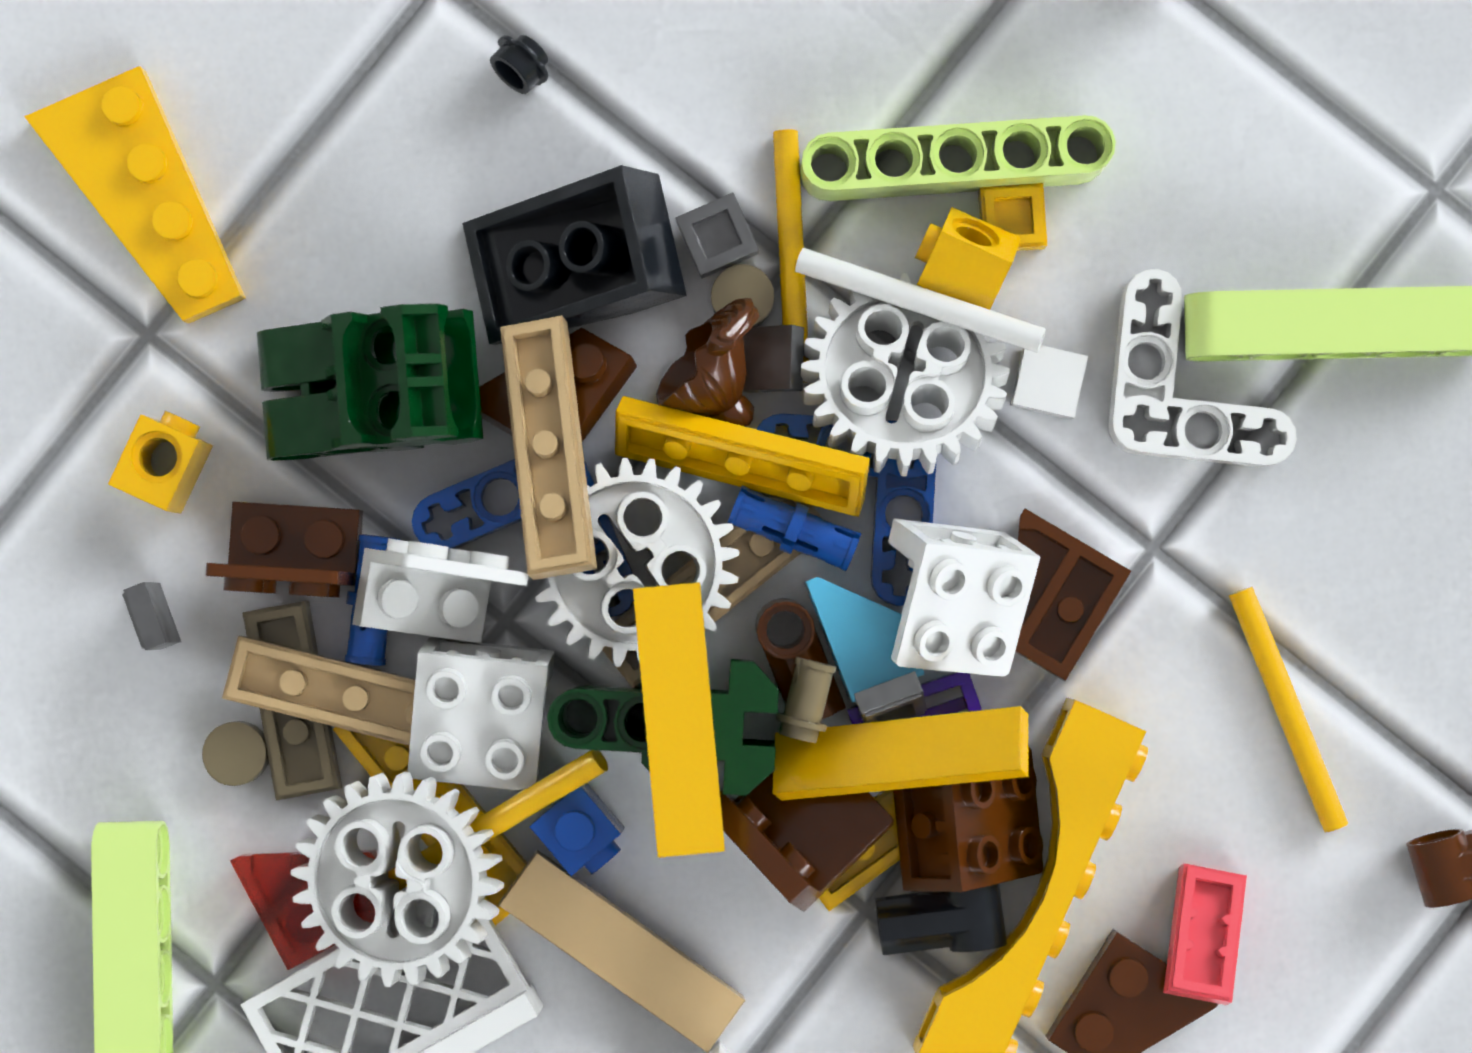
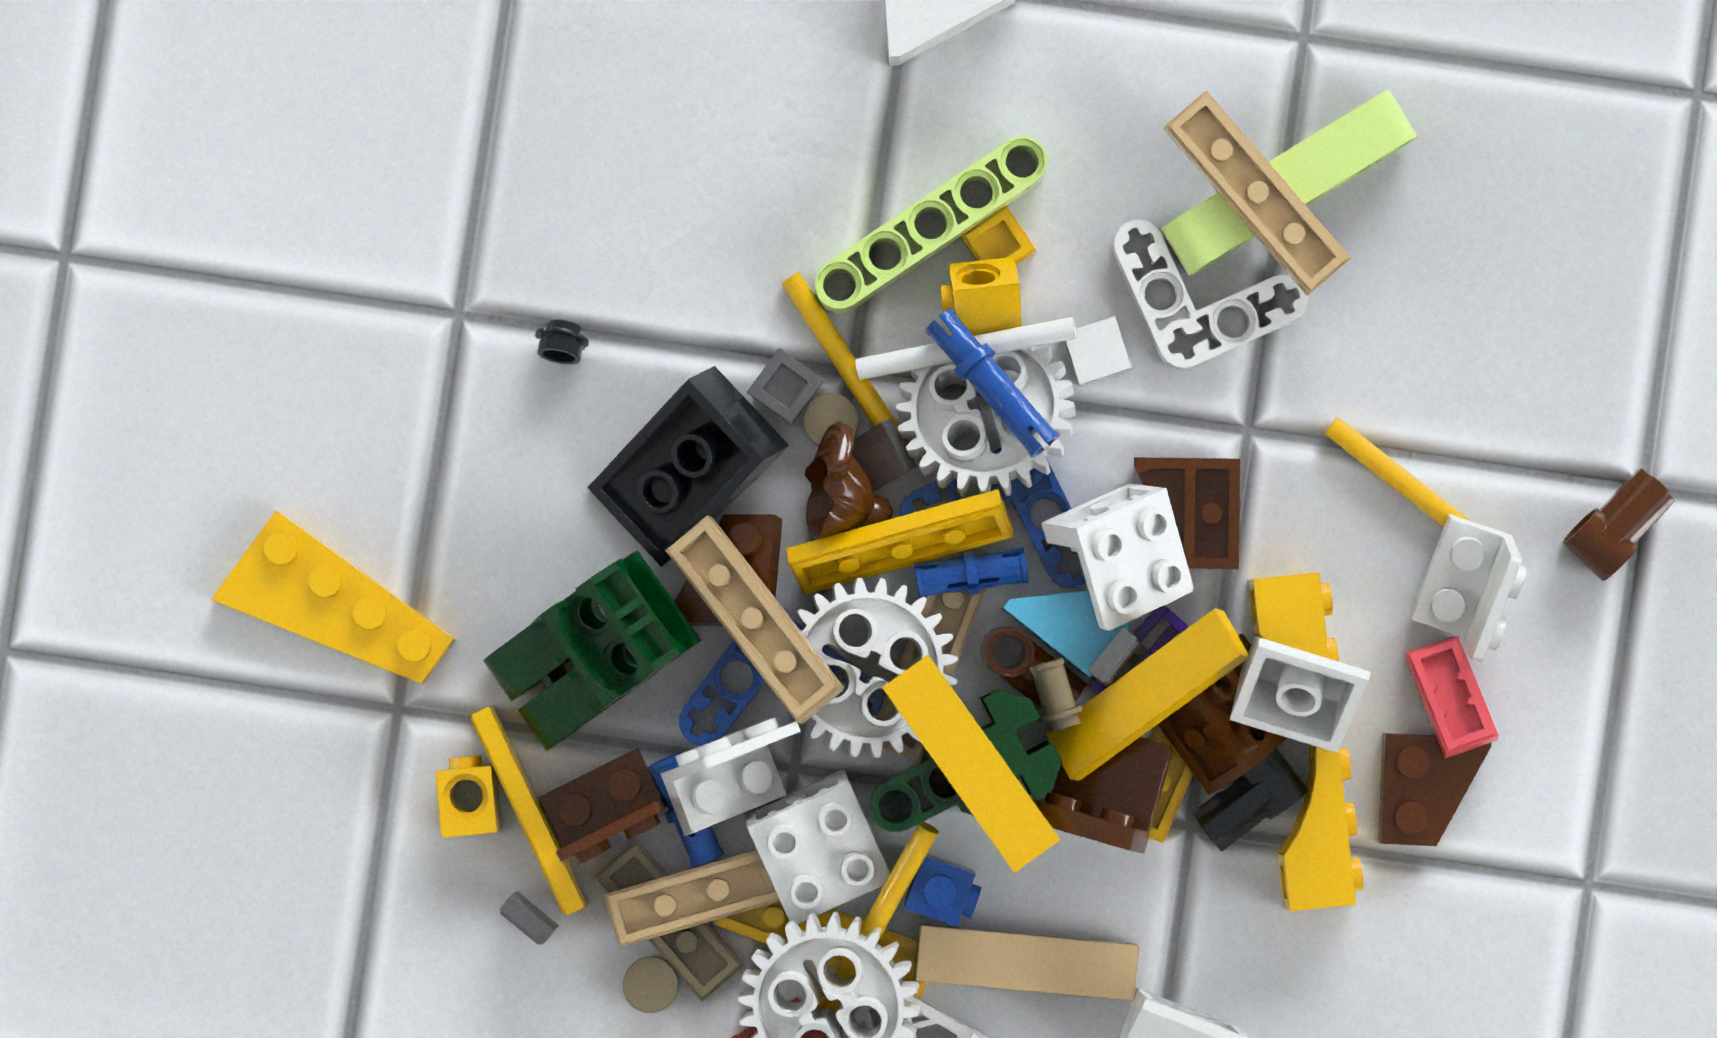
camera: 30 degrees left, 0 degrees up
(214, 505) = (528, 809): none -> yellow tile
(926, 347) = (991, 382): none -> blue pin
(1055, 844) = (1298, 694): none -> white slope
(1292, 834) = (1470, 584): none -> white bracket
(1305, 312) = (1256, 193): none -> tan tile

